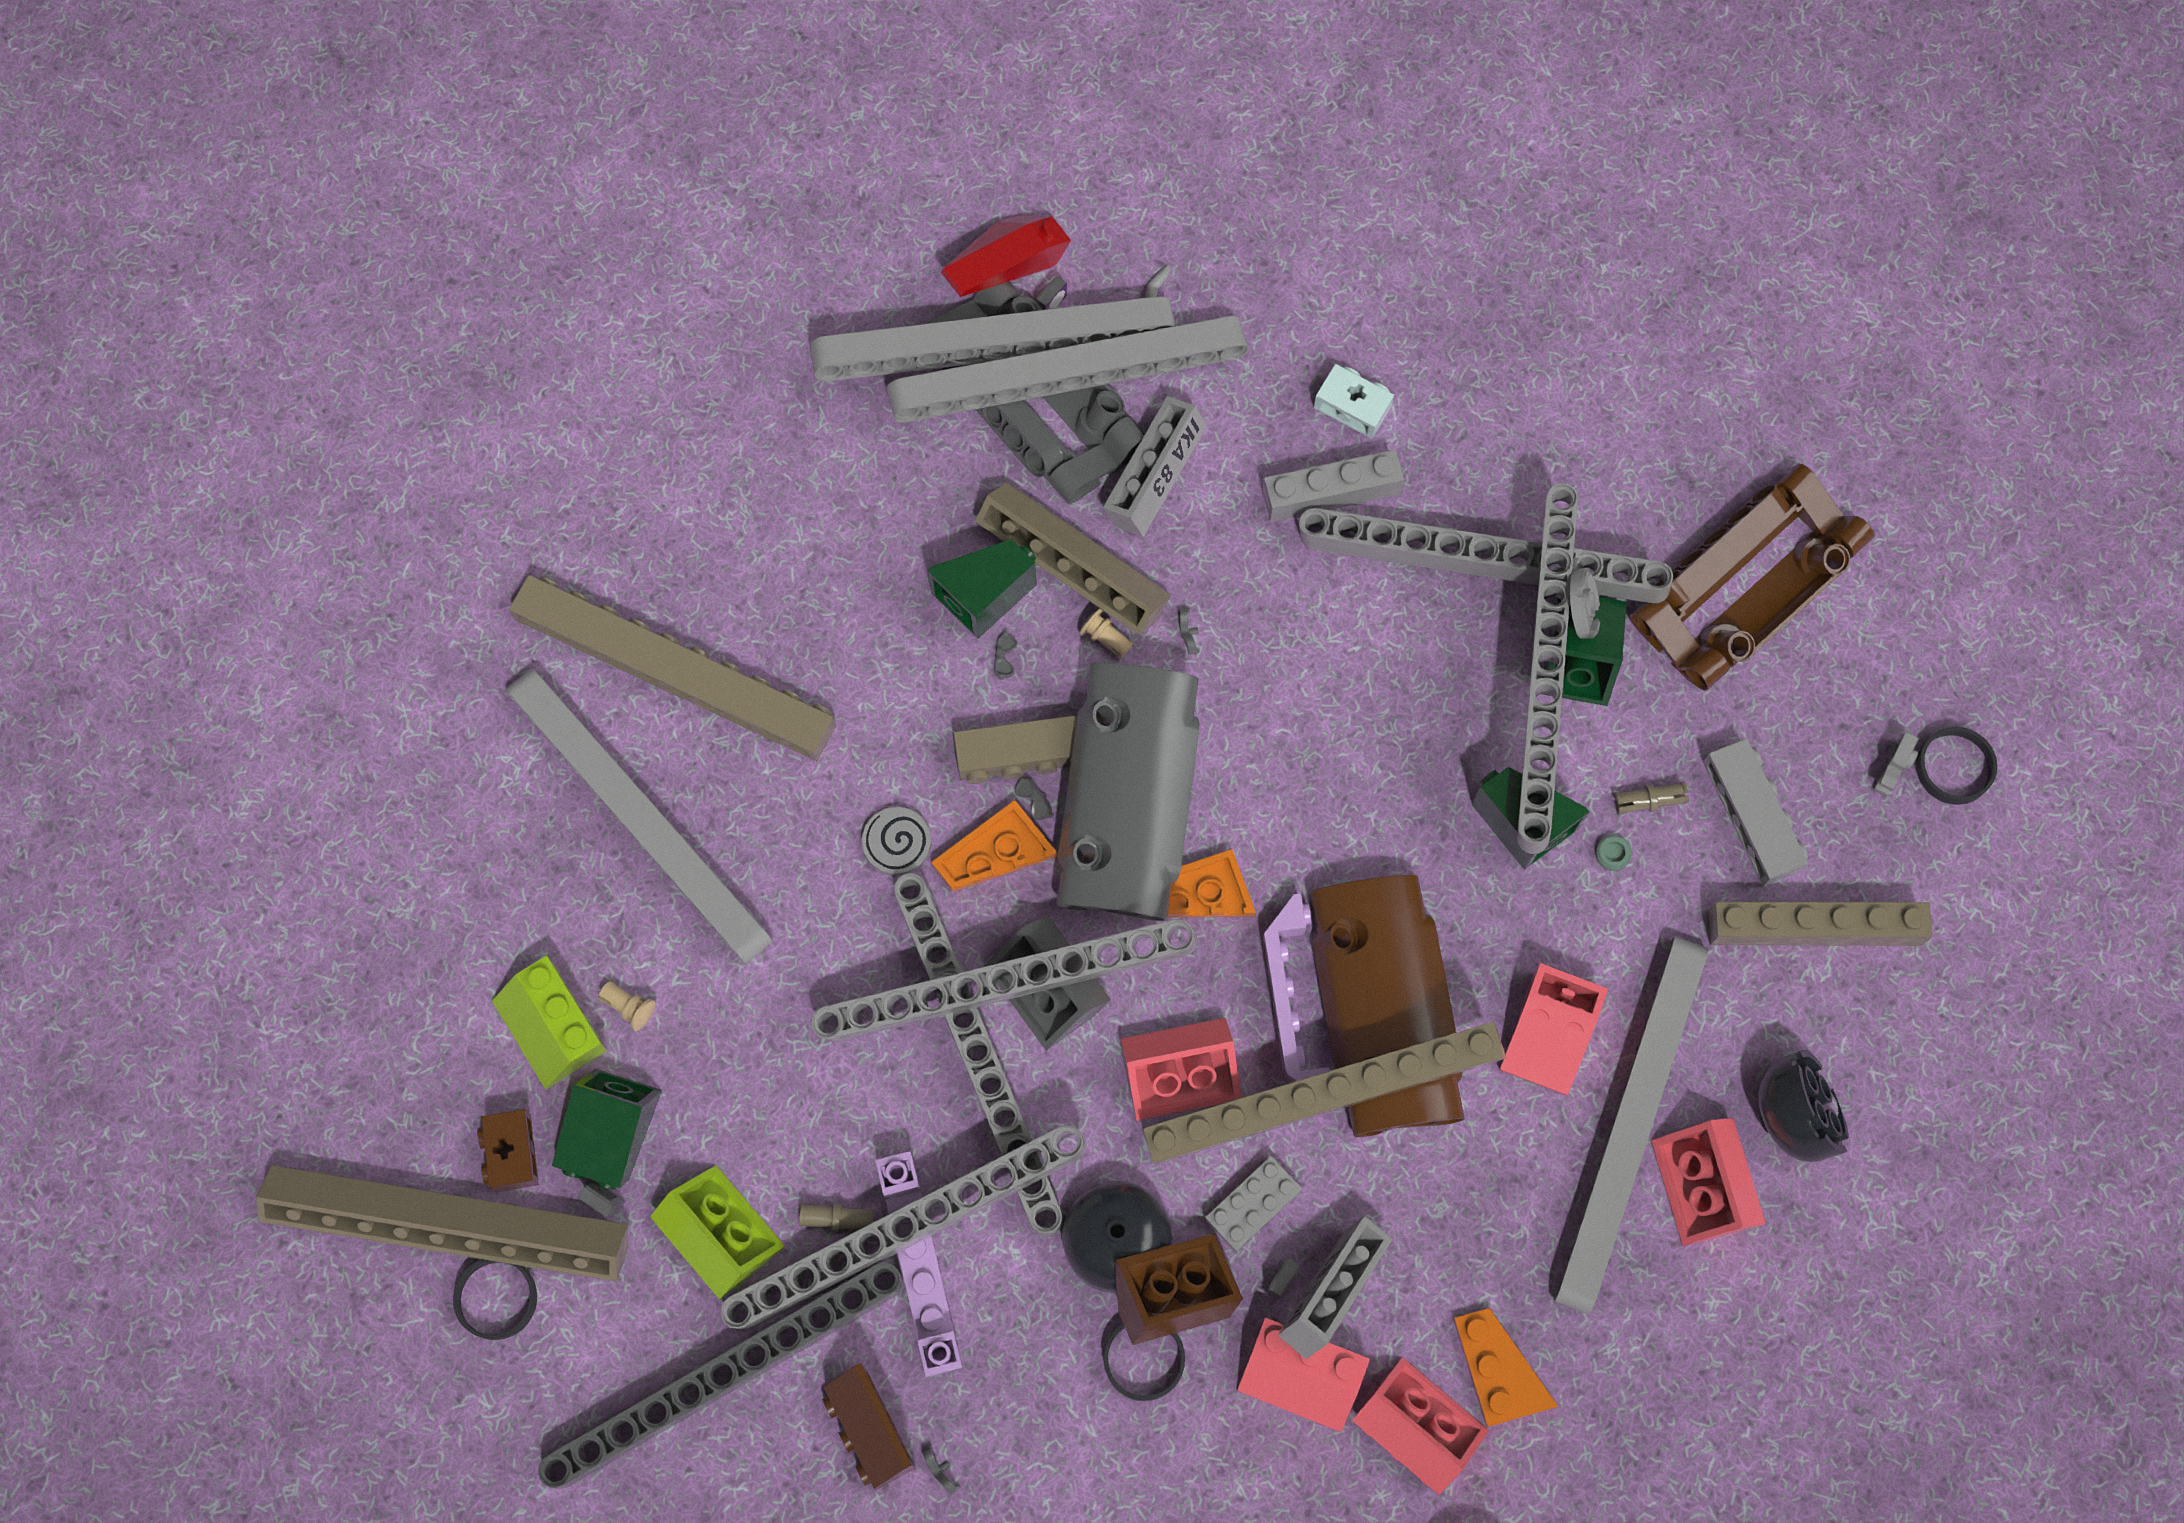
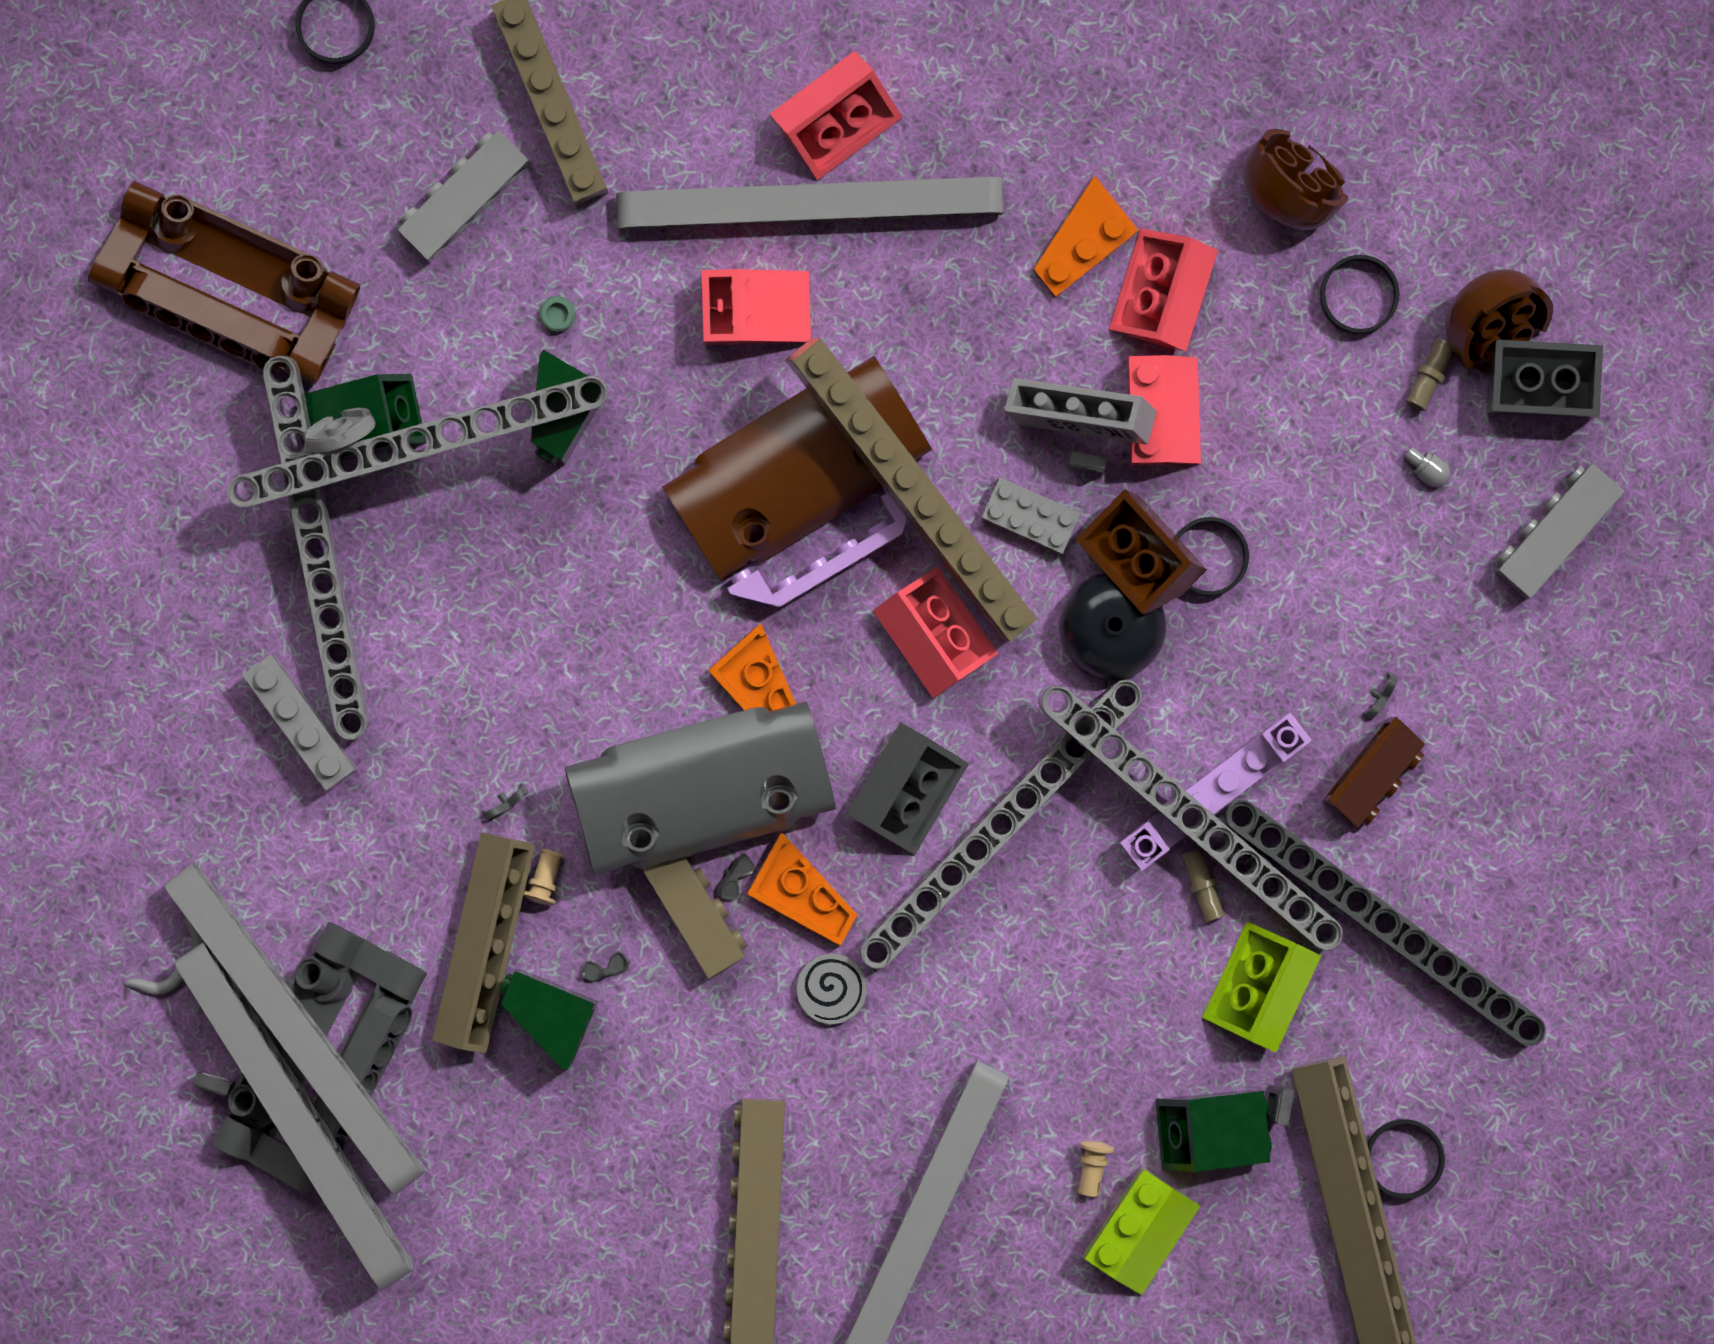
camera: 115 degrees left, 15 degrees up
(521, 1166) = (1280, 1191): reddish brown brick -> none
(986, 978) = (947, 833): light grey beam -> none
(1006, 253) = (188, 1148): red wedge -> none
(1155, 466) = (354, 902): light grey brick -> none
(1361, 415) = (208, 754): light aqua brick -> none
(1651, 797) = (489, 298): dark tan pin -> none
(1793, 1110) = (746, 65): black cylinder -> none
(1900, 758) = (351, 78): light grey plate -> none

